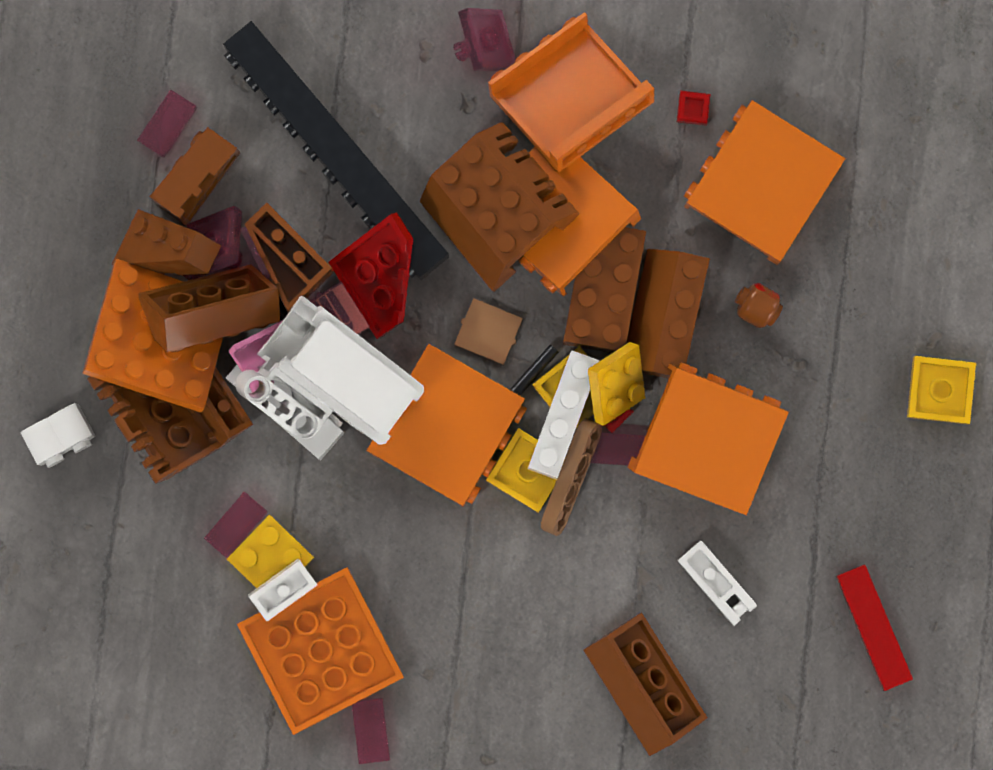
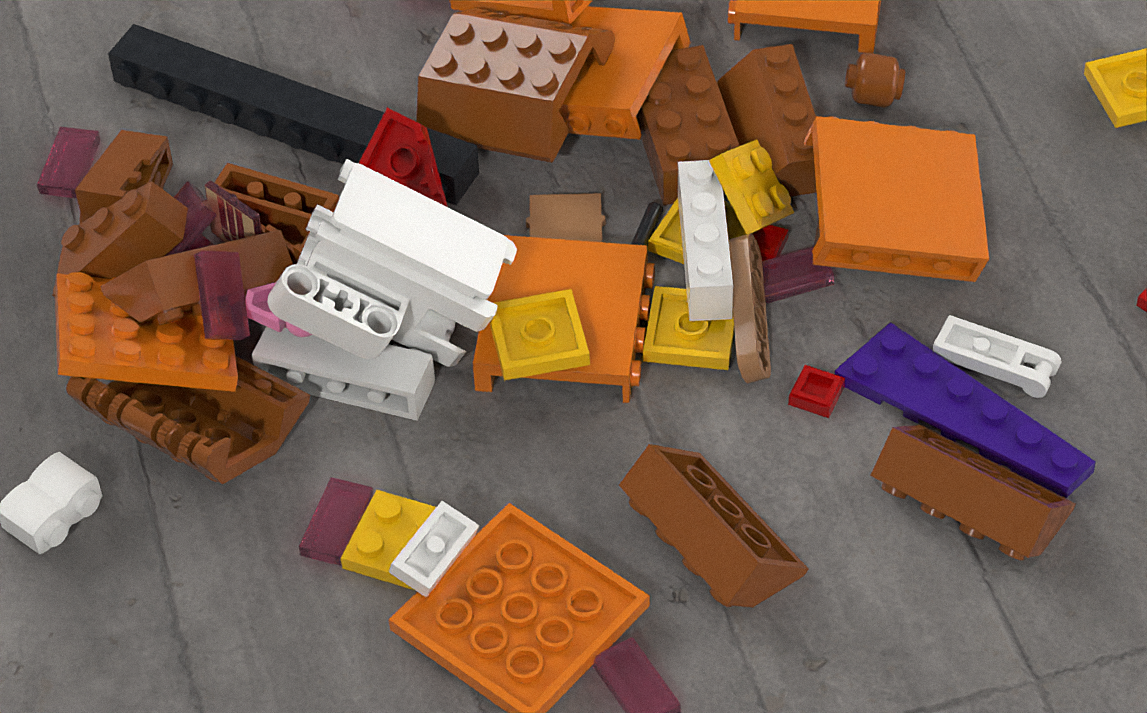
camera: 20 degrees left, 35 degrees down
(214, 342) = (221, 295): none -> clear pink tile
(415, 454) = (539, 335): none -> yellow plate
(468, 639) = (710, 526): none -> dark orange slope
(587, 555) = (816, 391): none -> red tile
(662, 592) = (931, 389): none -> dark purple wing

